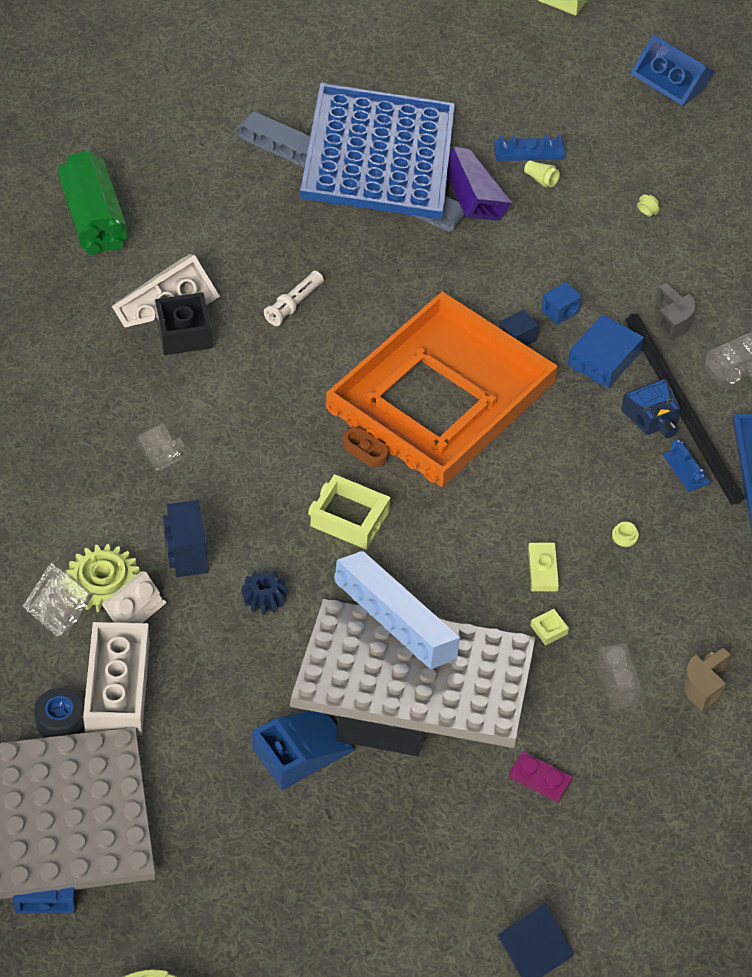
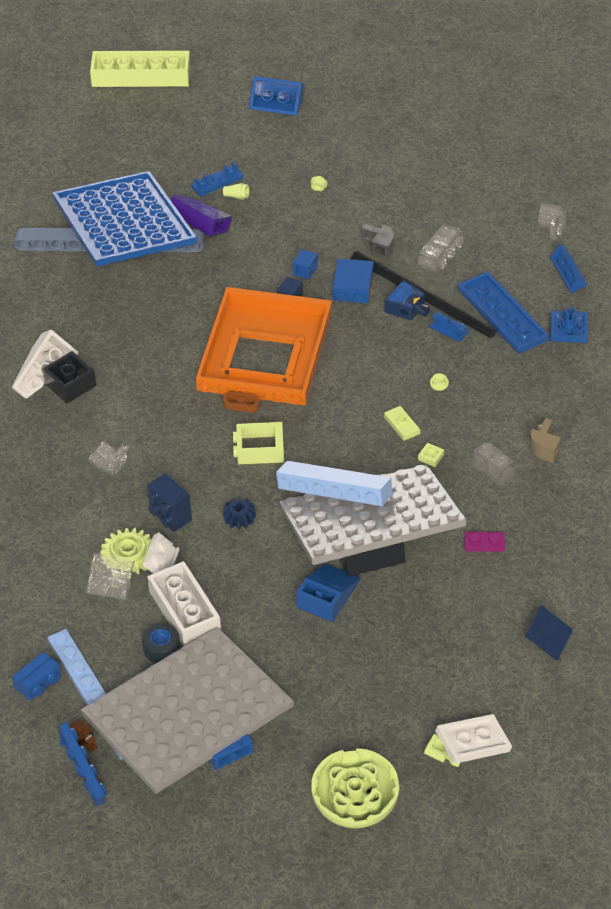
camera: 25 degrees left, 5 degrees down
(287, 303) = (133, 319): white pin -> none

